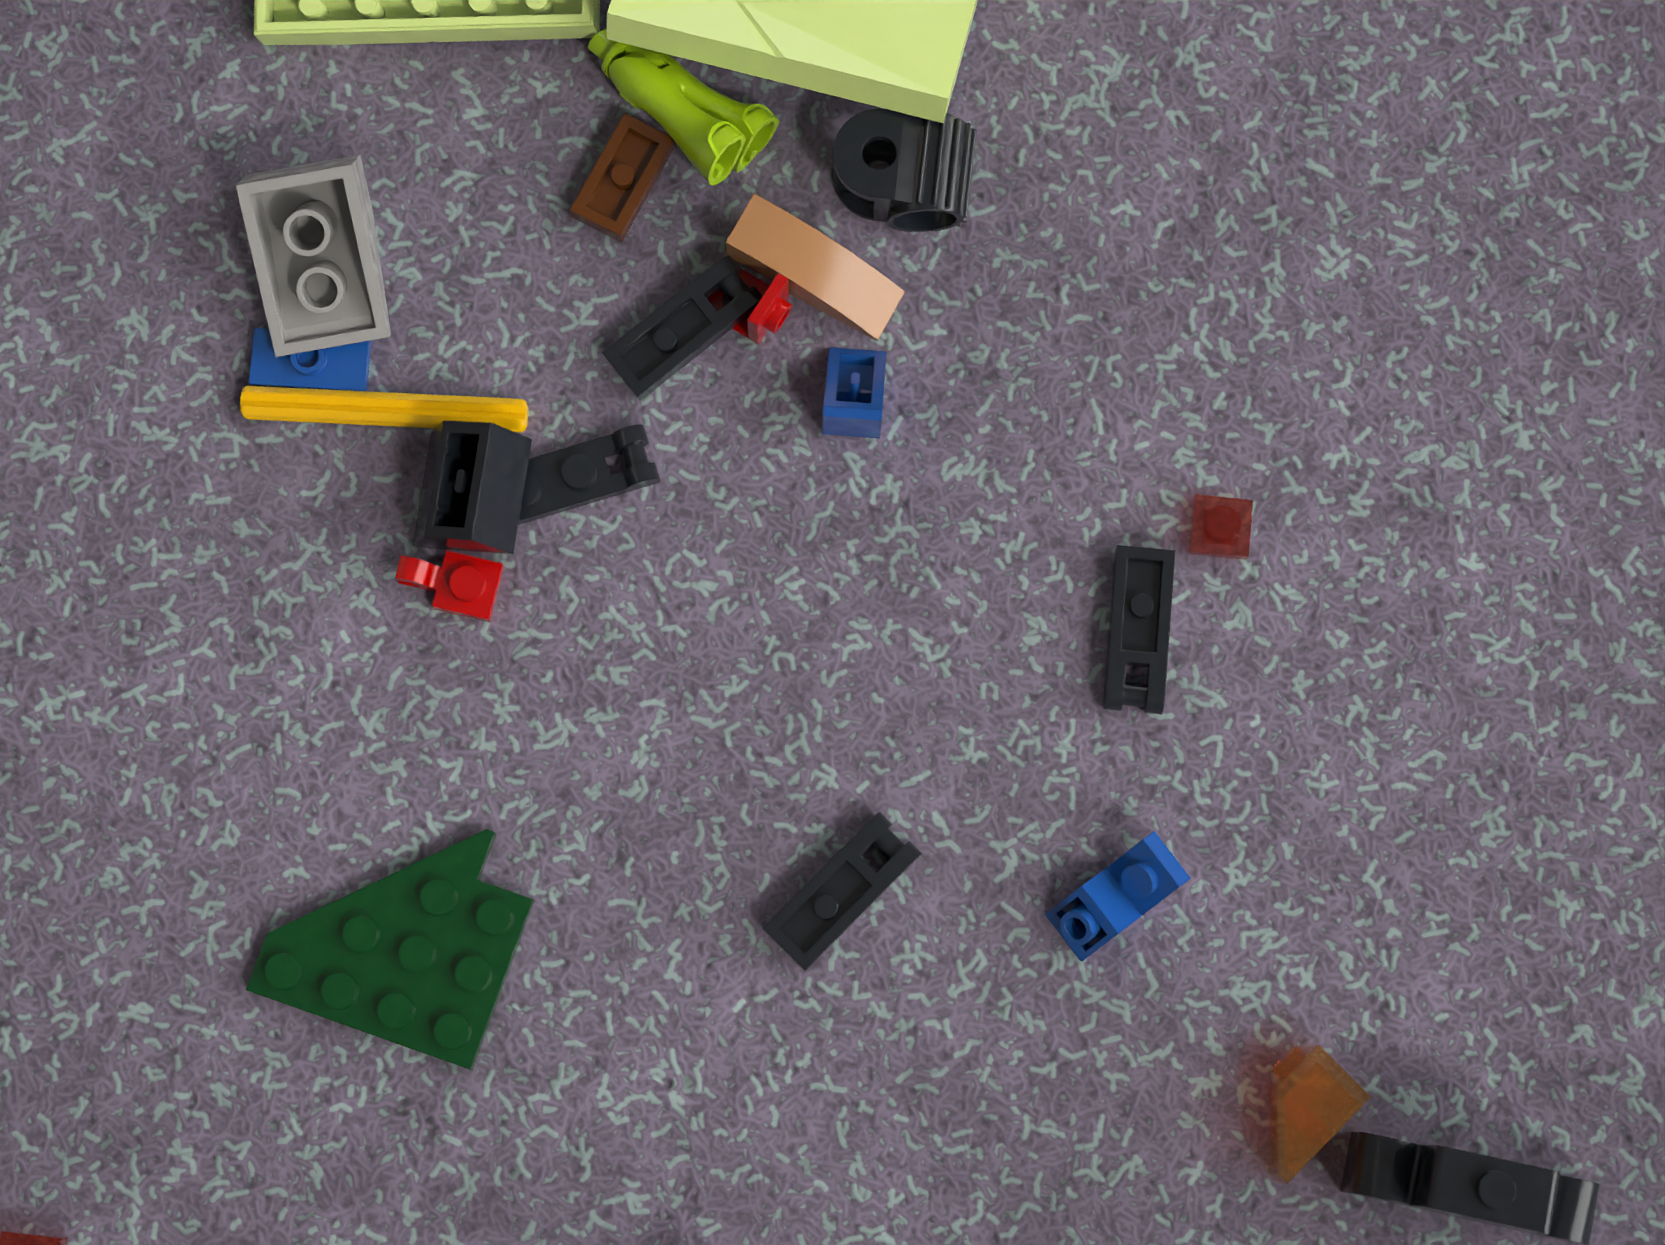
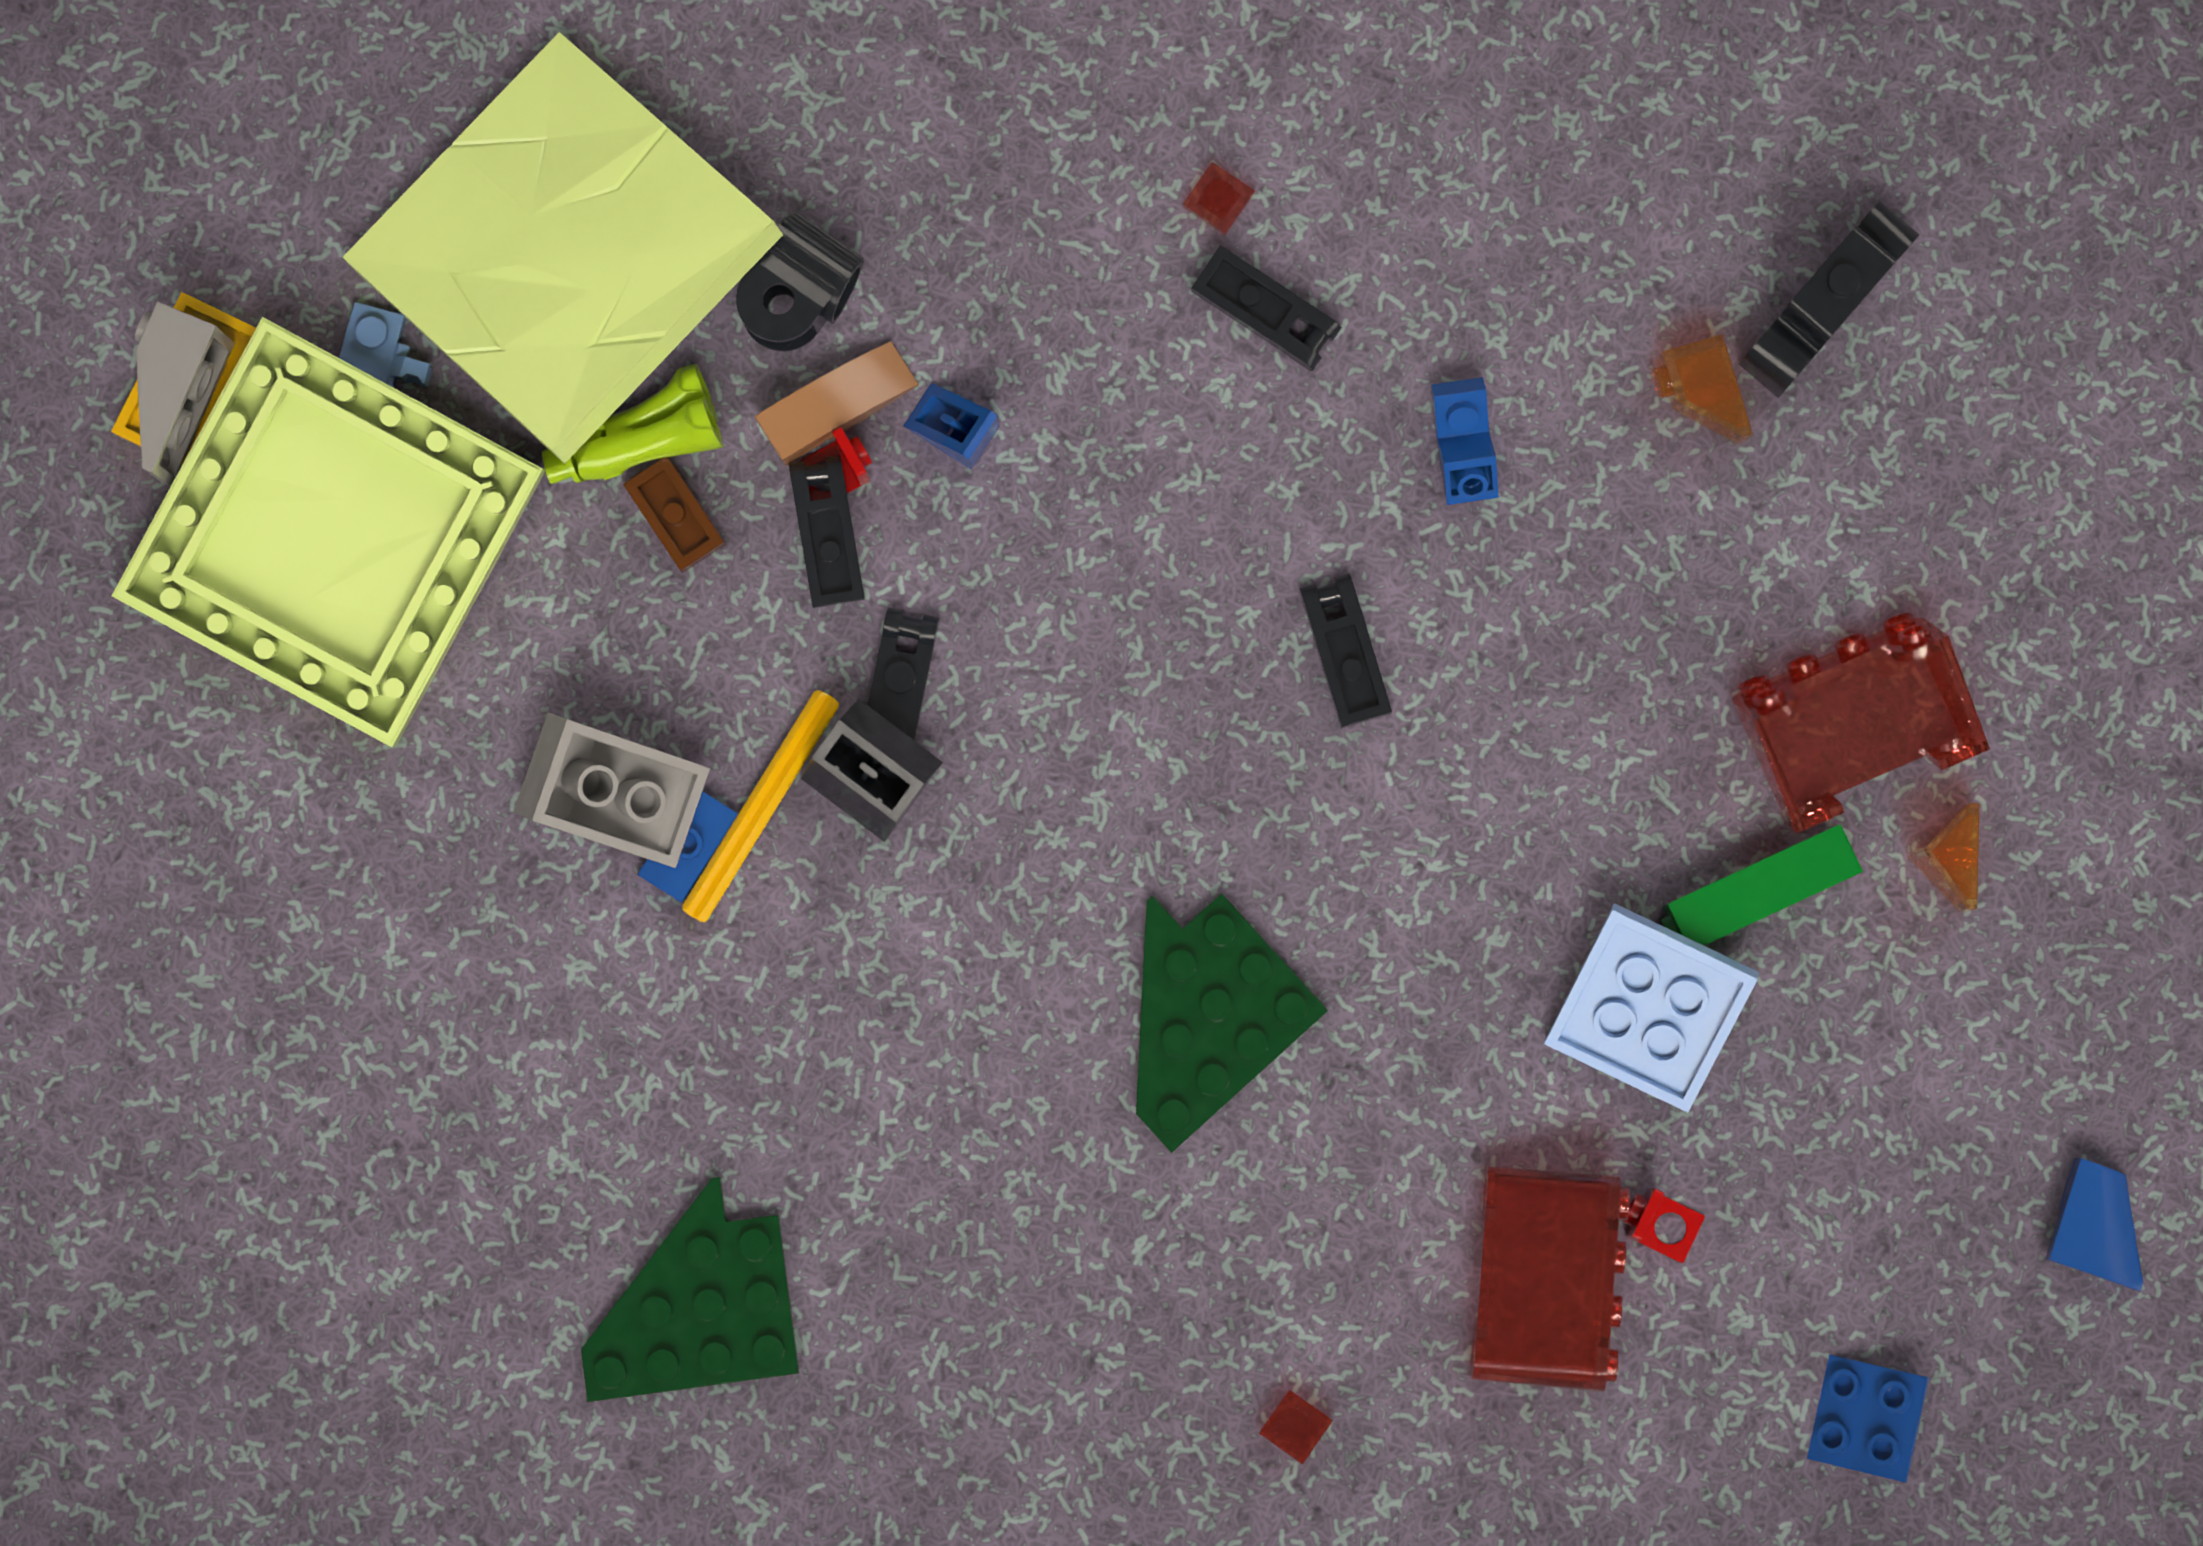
camera: 55 degrees left, 5 degrees up
(461, 586) = (938, 819): red plate -> none

